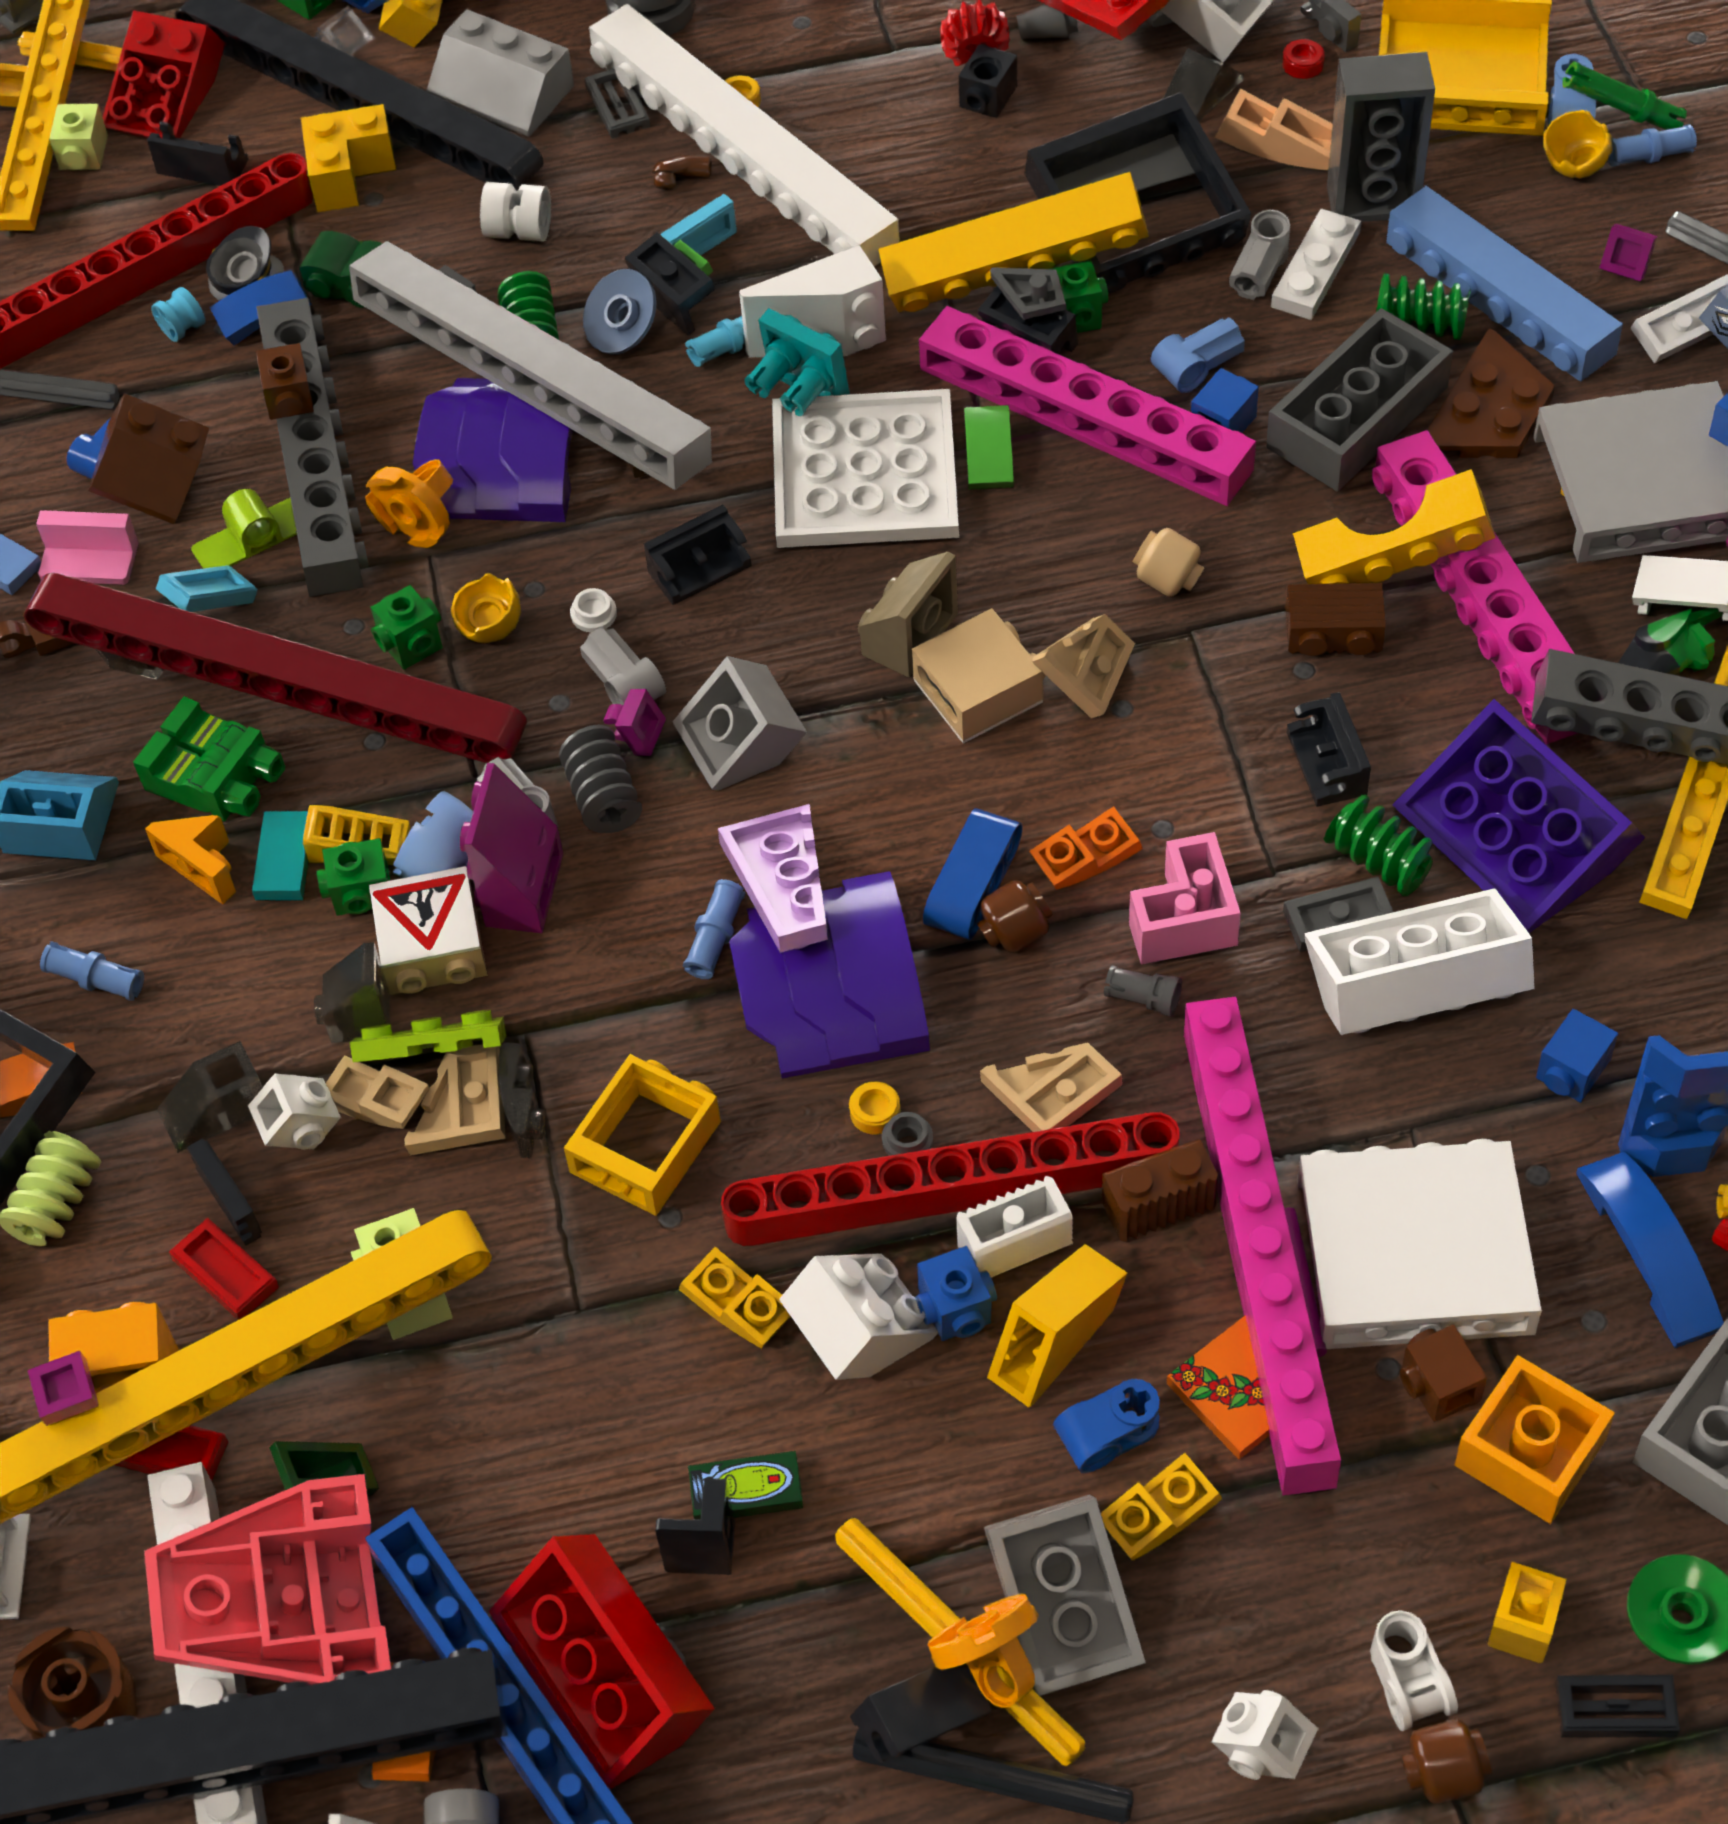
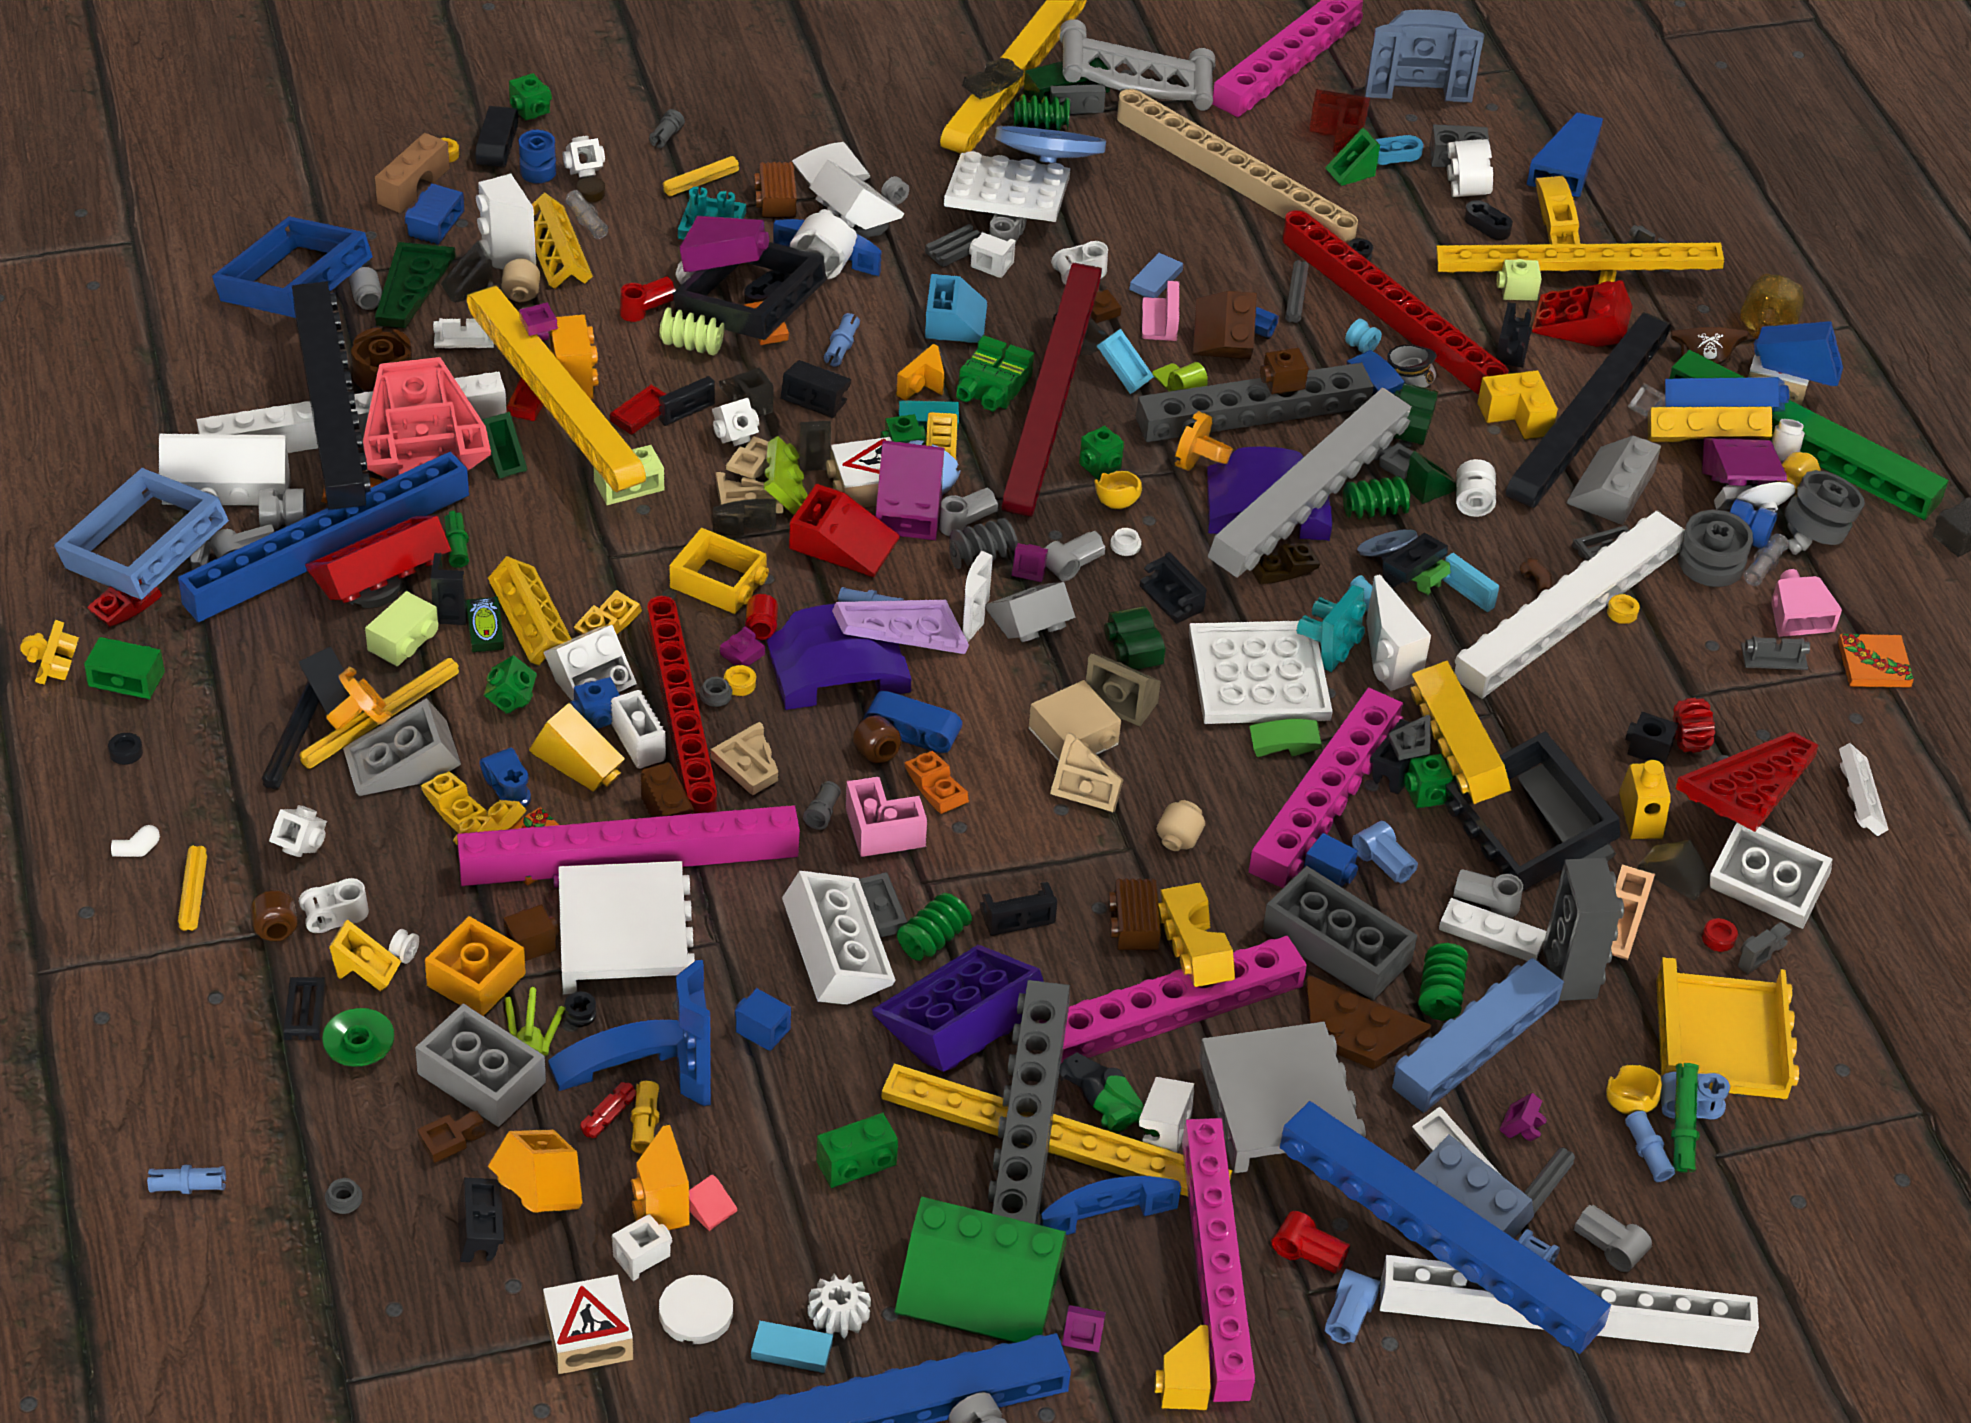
camera: 80 degrees right, 10 degrees down
(211, 1004) = (814, 388): none -> black hinge
(488, 264) = (1427, 479): none -> dark green slope
(527, 1542) = (457, 539): none -> green axle
(565, 966) = (841, 532): none -> red slope
(723, 1414) = (528, 608): none -> yellow fence
(733, 782) = (977, 594): none -> white slope
(749, 1071) = (762, 615): none -> red brick
(779, 1605) = (402, 628): none -> yellowish green brick
(800, 601) = (1135, 638): none -> dark green brick
(808, 1105) = (742, 648): none -> magenta tile
(914, 1426) = (510, 684): none -> green brick
(1099, 85) = (1641, 788): none -> yellow torso
(1218, 1444) = (500, 817): none -> yellow slope
(1484, 1557) = (404, 945): none -> white bush
(1577, 1288) = (583, 1000): none -> black bush
(1655, 1363) = (530, 1034): none -> lime plant

